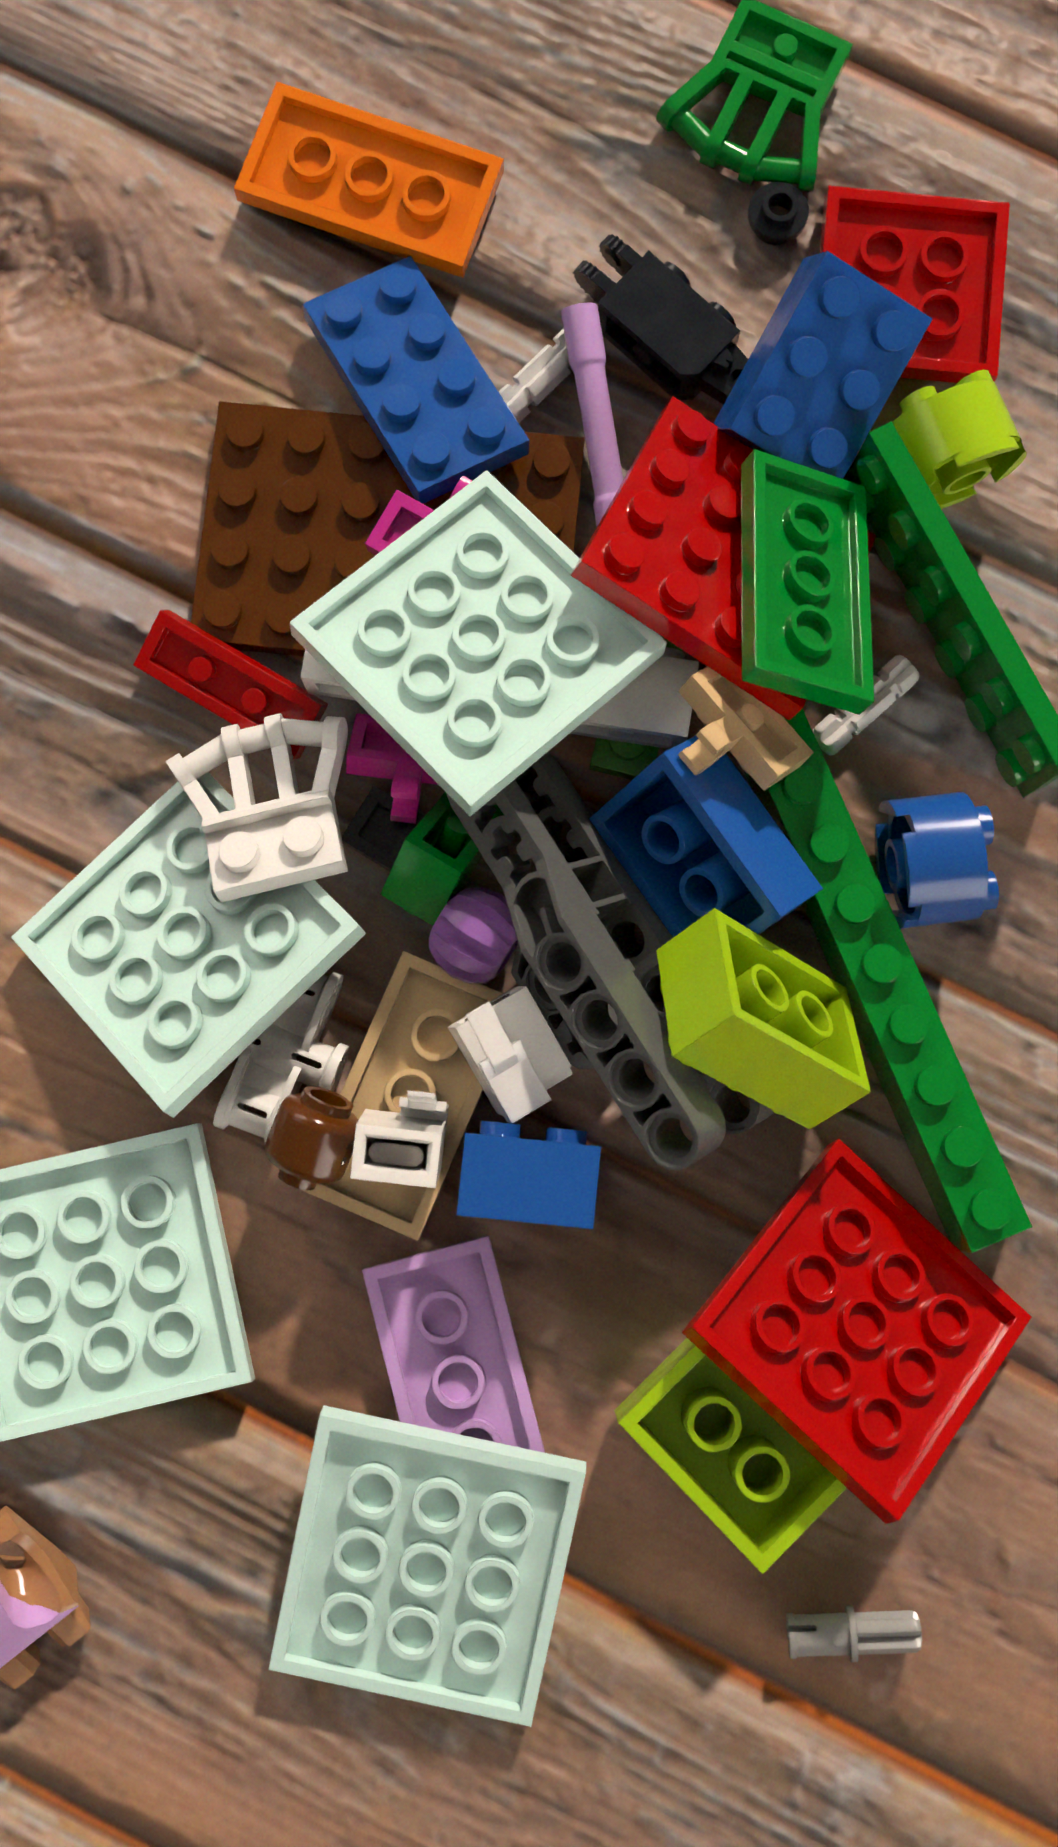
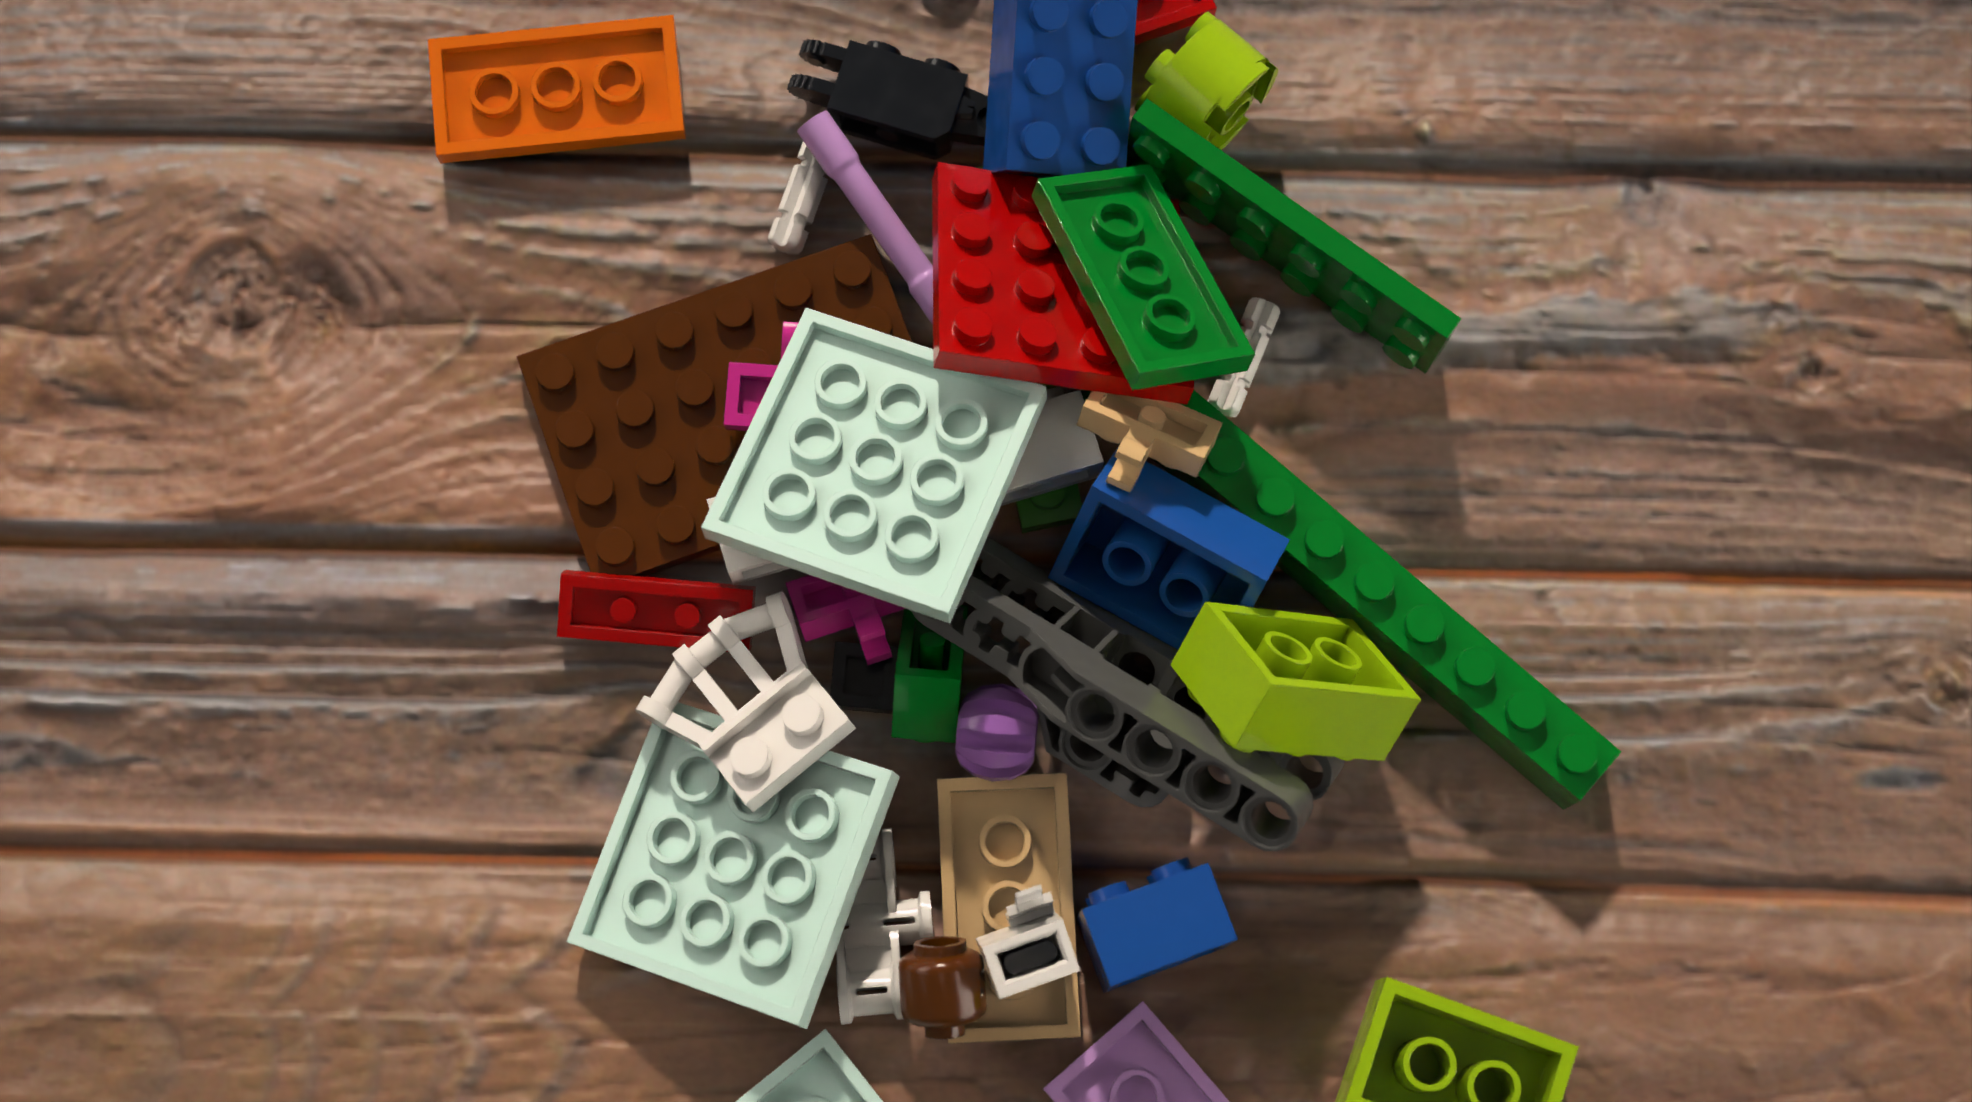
camera: 25 degrees left, 5 degrees down
(415, 379) = (691, 253): blue plate -> none
(512, 1052) = (1083, 822): white piece -> none
(859, 1330) = (1515, 917): red plate -> none
(936, 859) = (1375, 466): blue brick -> none

